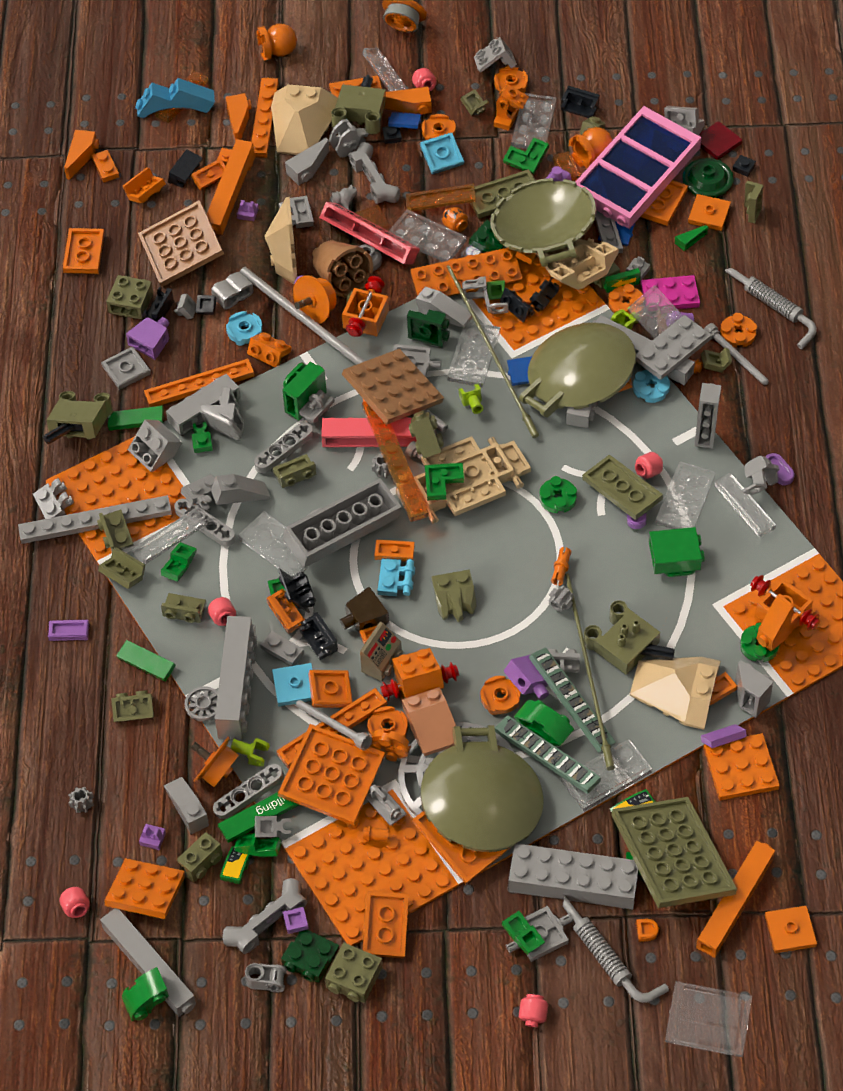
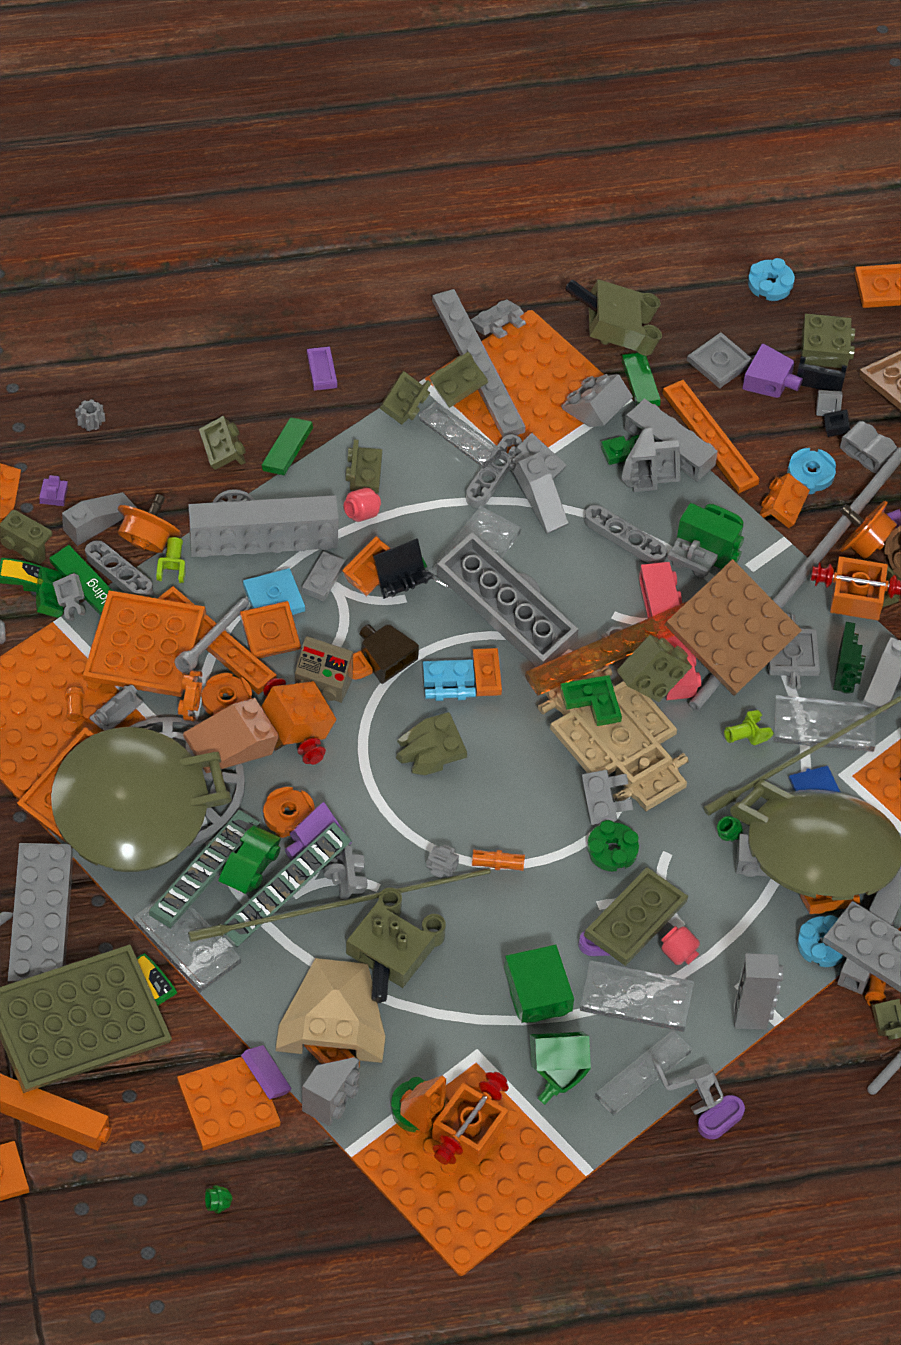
camera: 75 degrees right, 0 degrees up
(55, 315) = (773, 269): none -> medium azure plate
(179, 561) = (434, 456): green slope -> none
(294, 471) = (587, 549): olive bracket -> none
(319, 636) = (345, 611): black hinge -> none
(519, 492) = (600, 797): none -> light grey plate
(556, 422) = (729, 828): none -> green plate
(737, 544) = (560, 1060): none -> piece
(824, 780) = (217, 1199): none -> green plate

